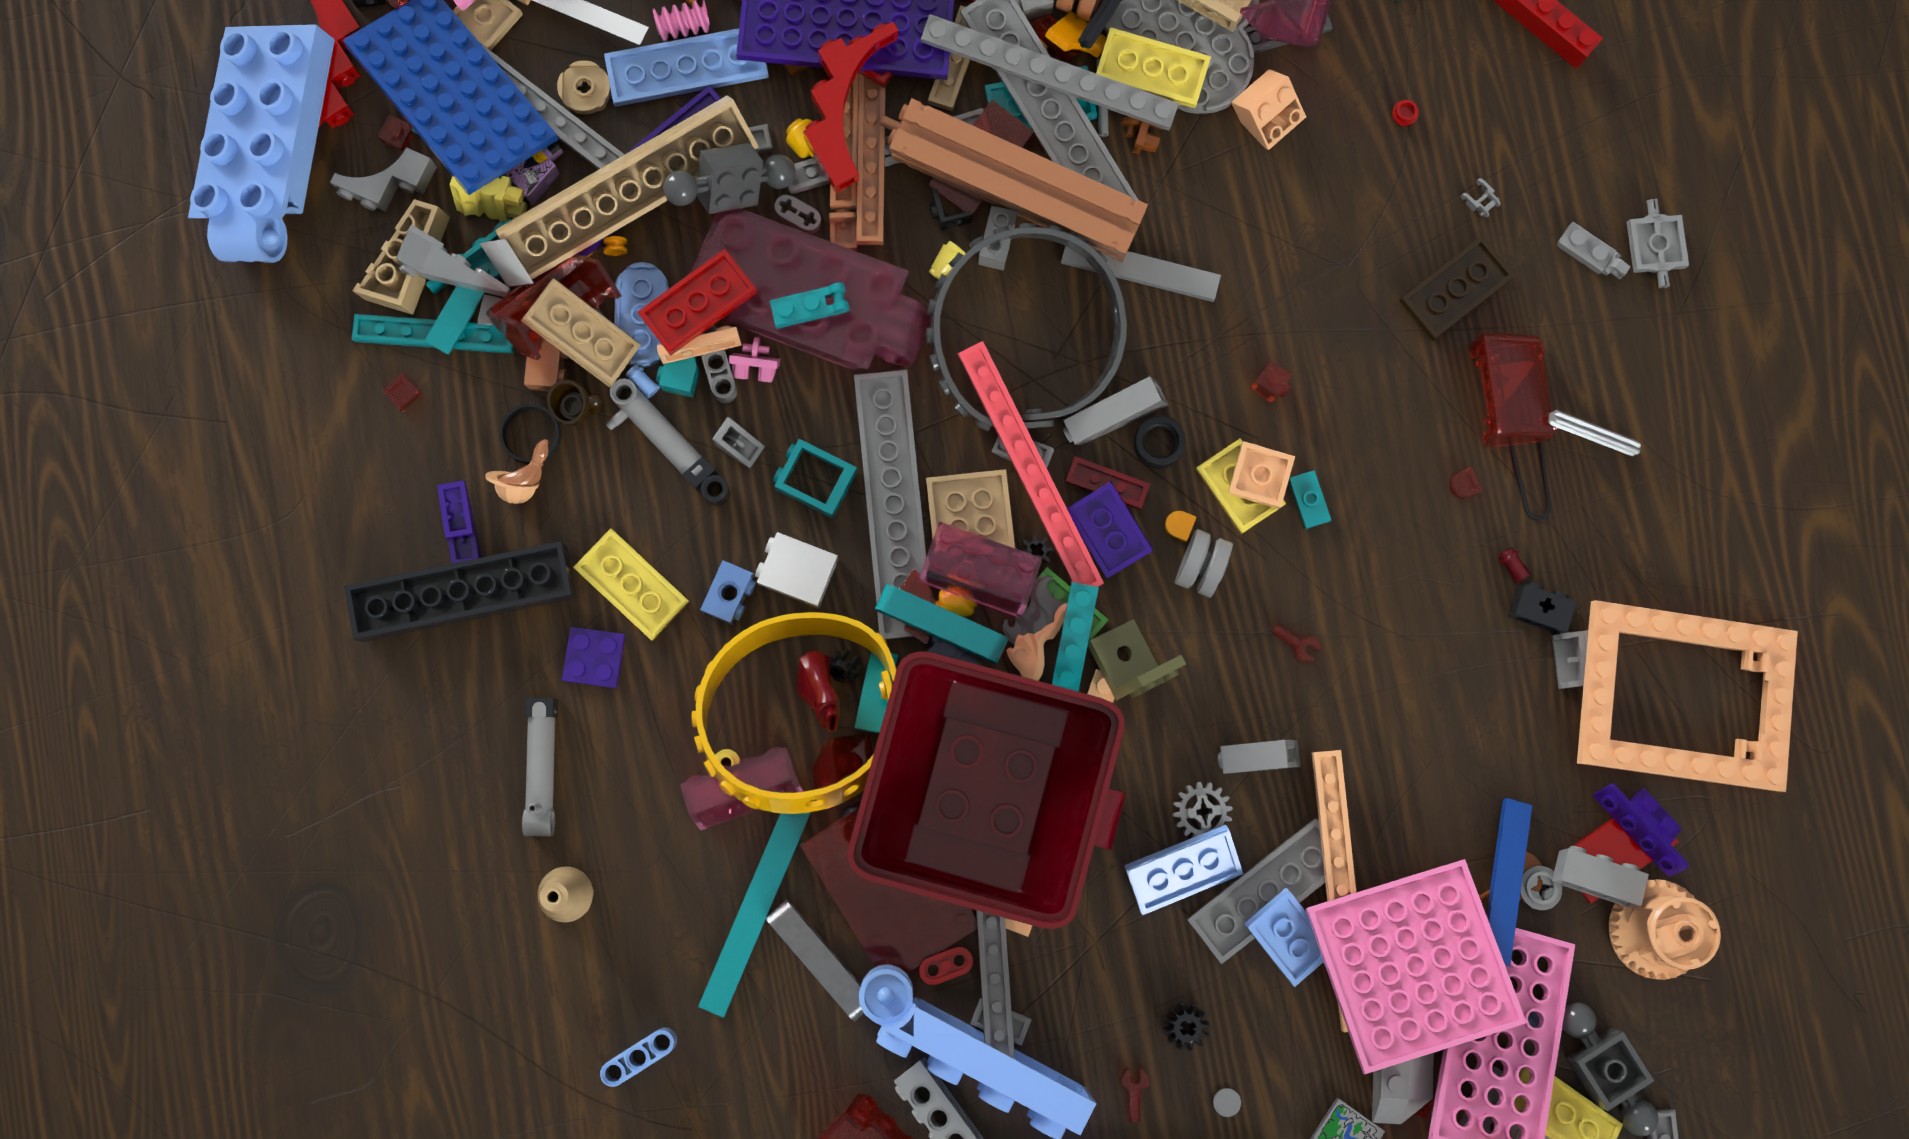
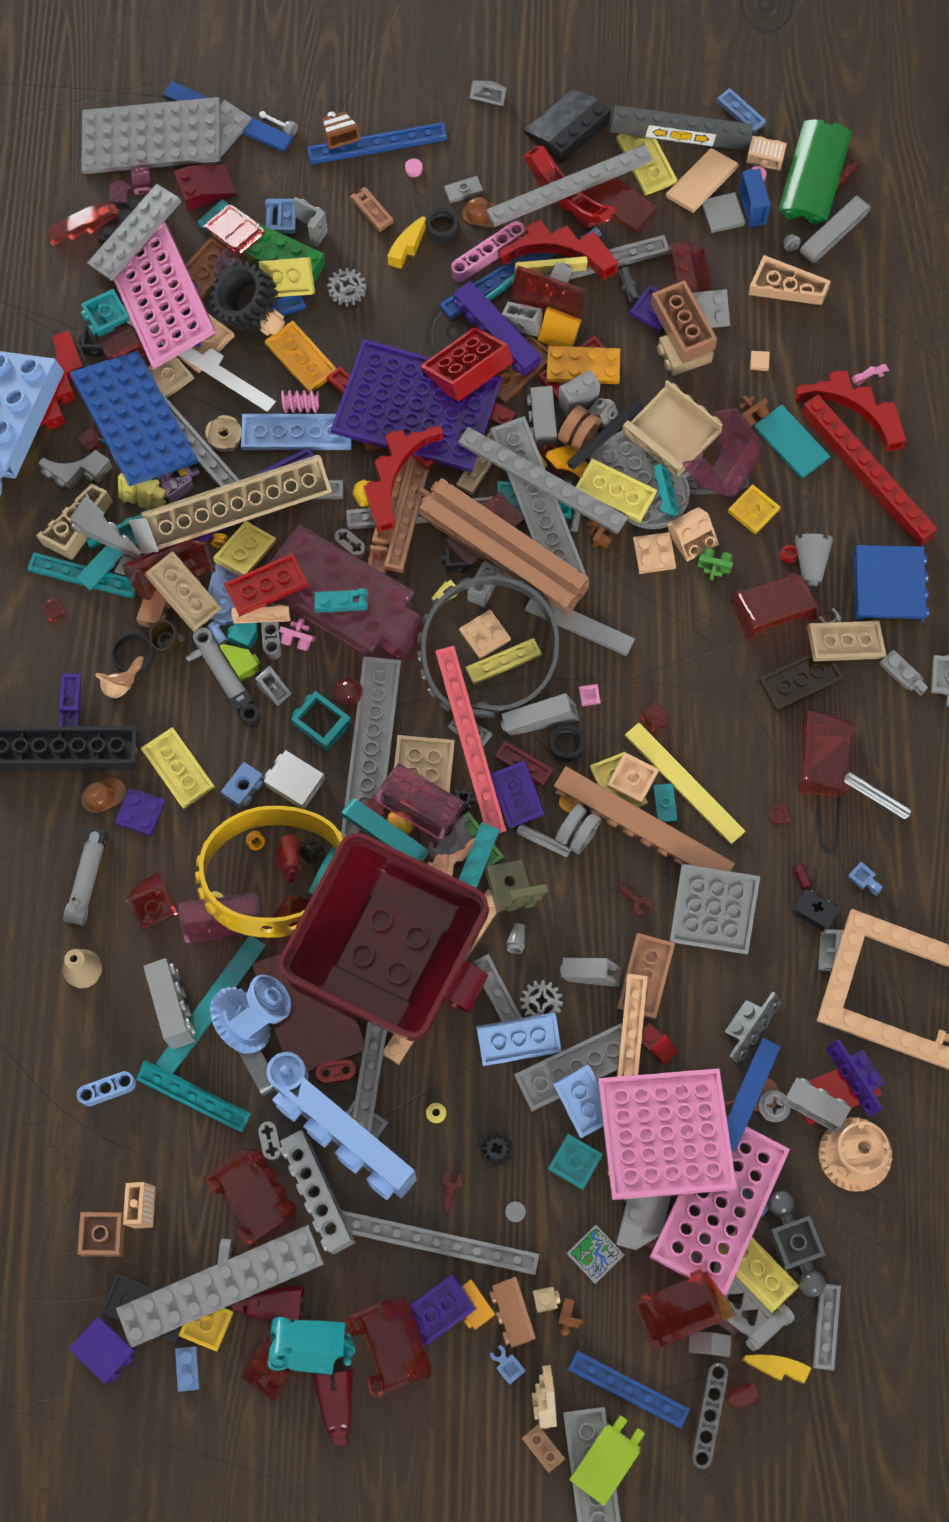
camera: 20 degrees right, 10 degrees down
(537, 643) = (103, 795): none -> dark orange piece
(639, 783) = (150, 902): none -> clear red slope
(653, 253) = (244, 549): none -> light yellow plate
(685, 415) = (241, 661): none -> lime slope
(699, 924) = (170, 1003): none -> light grey brick
(729, 178) = (306, 508): dark grey brick -> none
(759, 661) = (251, 836): none -> light orange bush
(760, 1040) = (193, 1096): none -> teal tile
(809, 921) = (245, 1017): none -> light blue piece
(843, 430) = (347, 692): none -> clear red hair
(871, 1081) = (274, 1140): none -> light grey beam
(1013, 309) = (484, 634): none -> light nougat plate
(1047, 342) = (503, 661): none -> light yellow tile
(1084, 993) = (436, 1119): none -> light yellow plate
(1143, 812) = (497, 991): none -> light grey tile
(1150, 732) = (516, 940): none -> light grey cone
(1156, 585) = (543, 840): none -> light grey axle
(1175, 367) = (589, 695): none -> bright pink tile
(1220, 146) = (654, 553): none -> light nougat plate
(1223, 55) = (666, 491): none -> teal plate
(1289, 539) = (637, 822): none -> nougat brick
(1293, 1019) = (575, 1161): none -> teal plate
(1308, 150) = (713, 565): none -> bright green hips
(1330, 466) = (685, 783): none -> light yellow tile
(1336, 724) = (652, 959): none -> nougat plate
(1345, 57) = (754, 509): none -> yellow plate
(1370, 836) = (658, 1045): none -> red slope
(1401, 190) = (774, 604): none -> clear red windscreen
(1410, 636) = (714, 909): none -> light grey plate
(1441, 111) = (813, 556): none -> light grey cone
(1484, 783) = (749, 1024): none -> dark grey bracket
(1509, 222) = (846, 641): none -> tan plate
(1550, 127) = (890, 582): none -> blue panel
(1595, 549) = (863, 877): none -> medium blue plate

